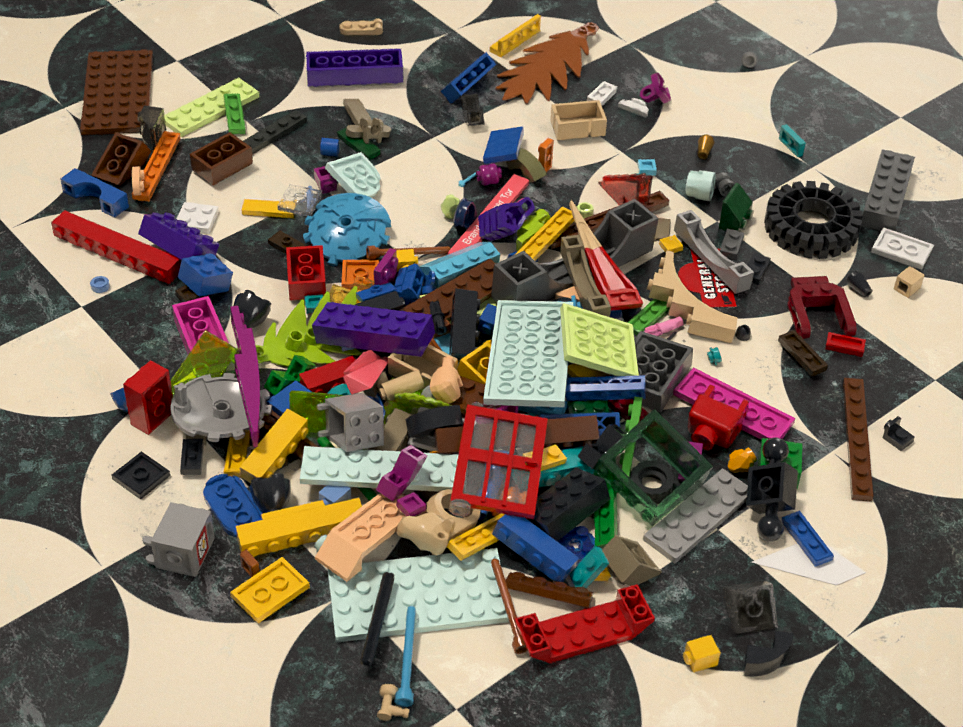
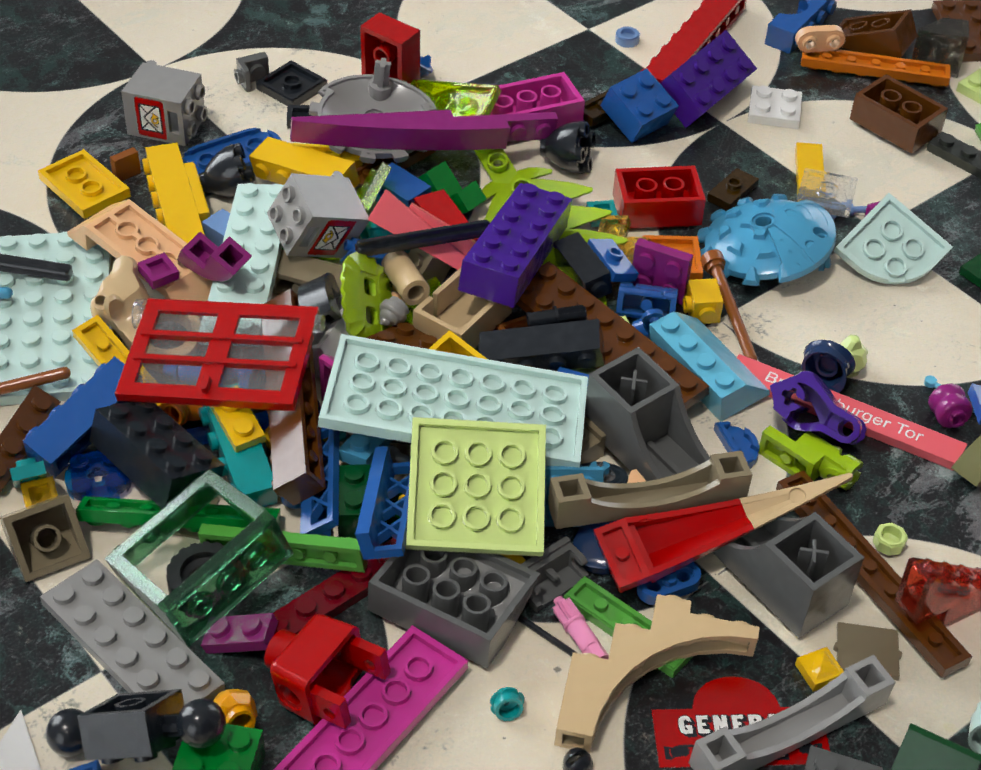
camera: 90 degrees right, 0 degrees up
(127, 498) = (251, 69): none -> dark grey bracket
(329, 147) = (967, 224): blue brick -> none
(377, 368) = (421, 238): none -> black axle
(446, 382) = (409, 311): light nougat piece -> none
(548, 233) = (768, 455): yellow plate -> none
(592, 452) = (271, 498): black brick -> none

